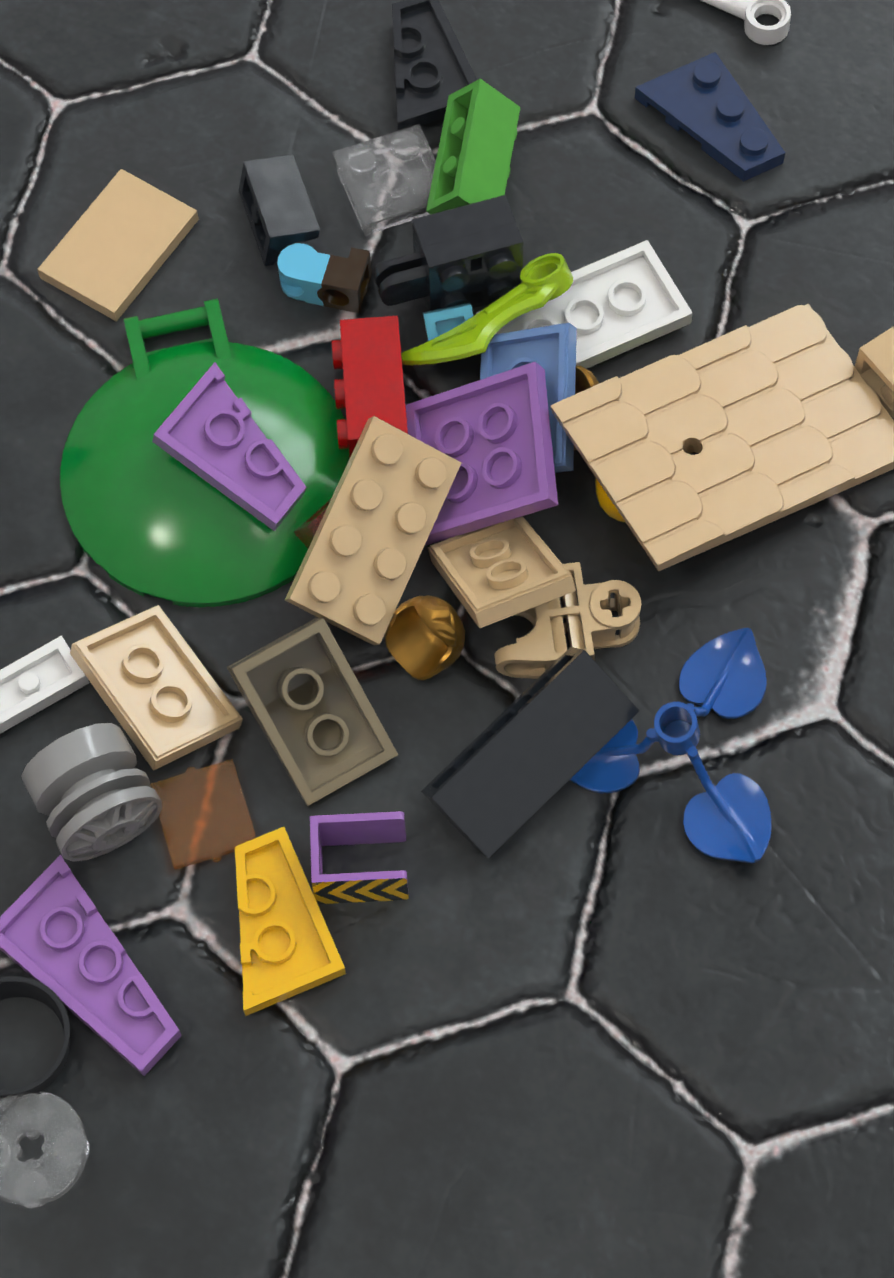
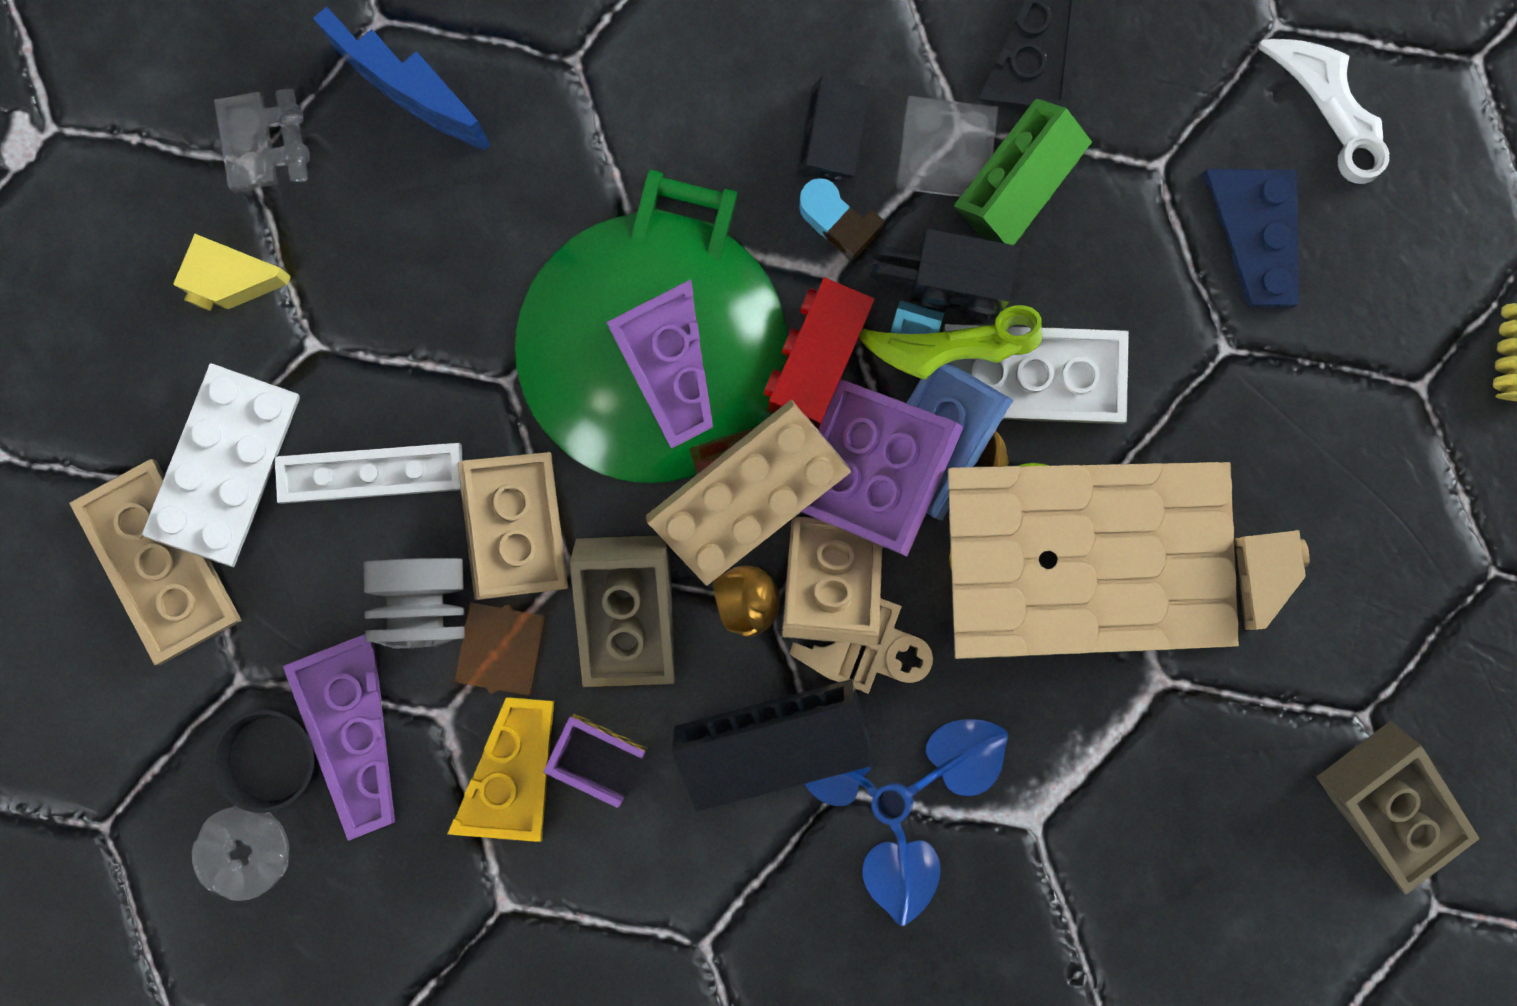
camera: 25 degrees right, 20 degrees up
(118, 244) = (682, 89): tan tile -> none

